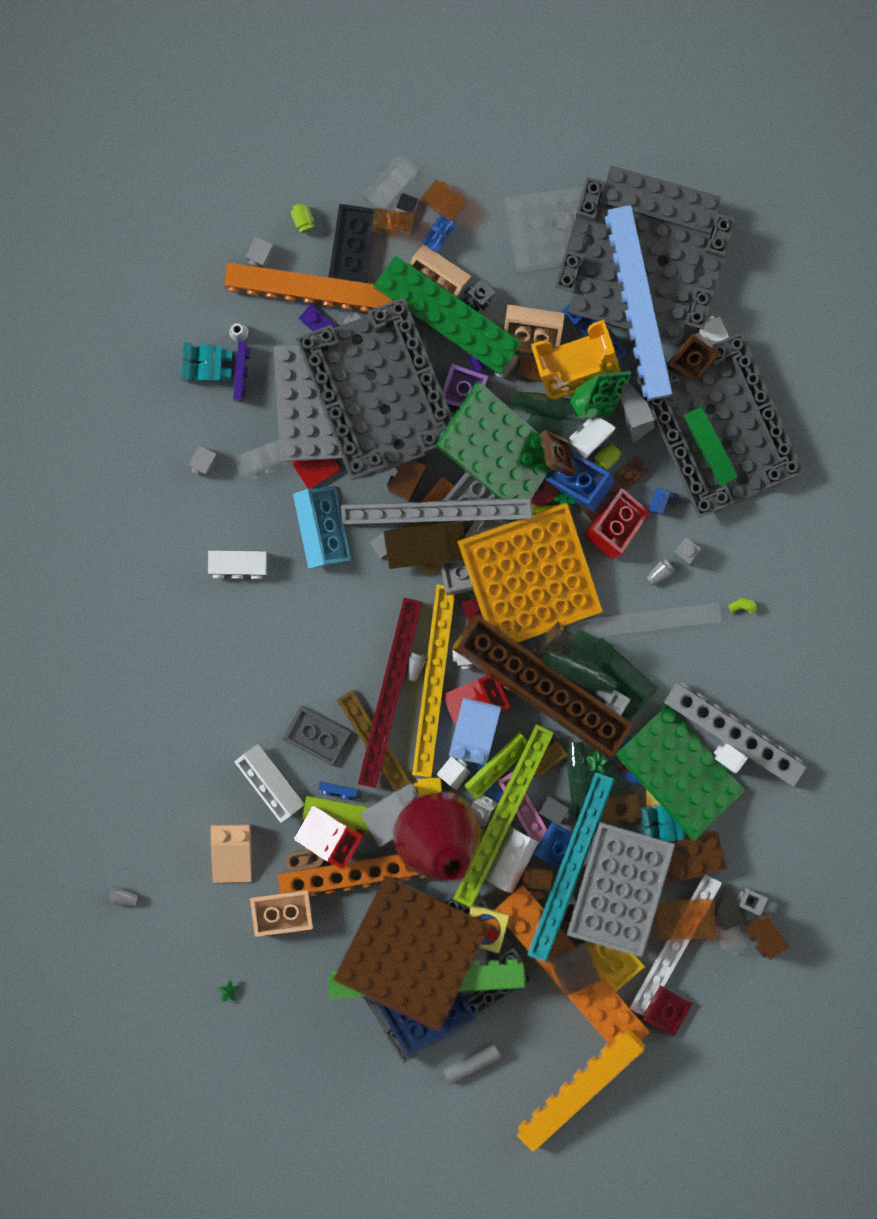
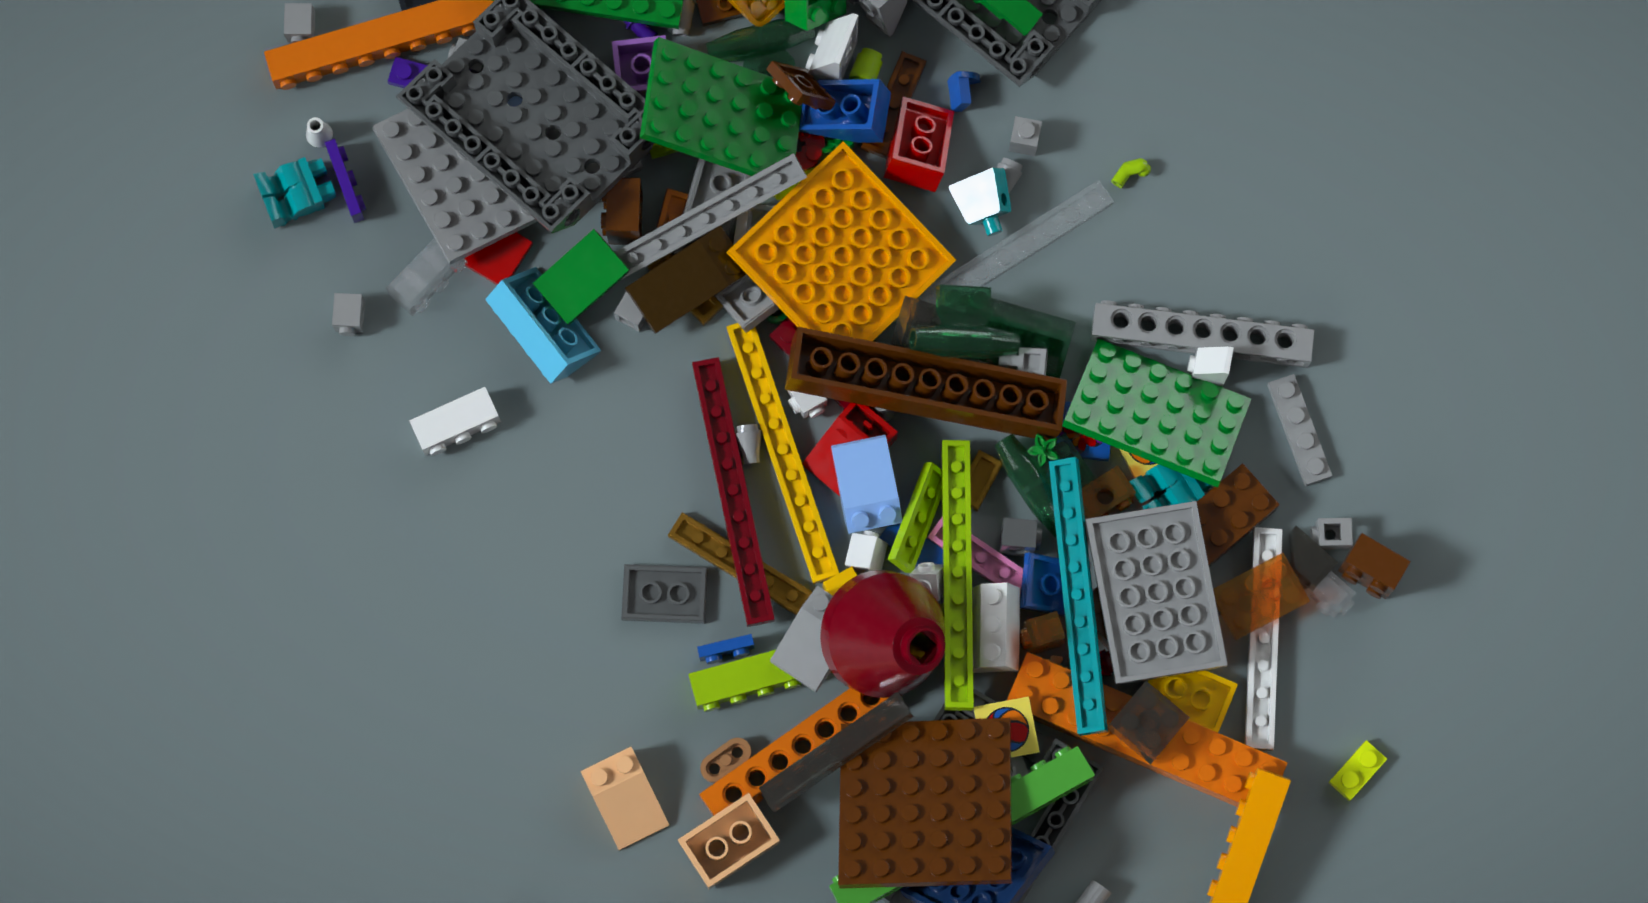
camera: 25 degrees left, 10 degrees down
(268, 780) = (631, 681): white brick -> none
(328, 837) = (743, 709): slope -> none
(359, 509) = (581, 276): none -> green tile
(372, 893) = (836, 752): none -> clear smoke tile
(639, 581) = (983, 199): none -> torso
(667, 1011) = (1295, 727): dark red tile -> none
(692, 1054) = (1357, 770): none -> neon yellow plate
(765, 824) = (1299, 430): none -> light grey plate

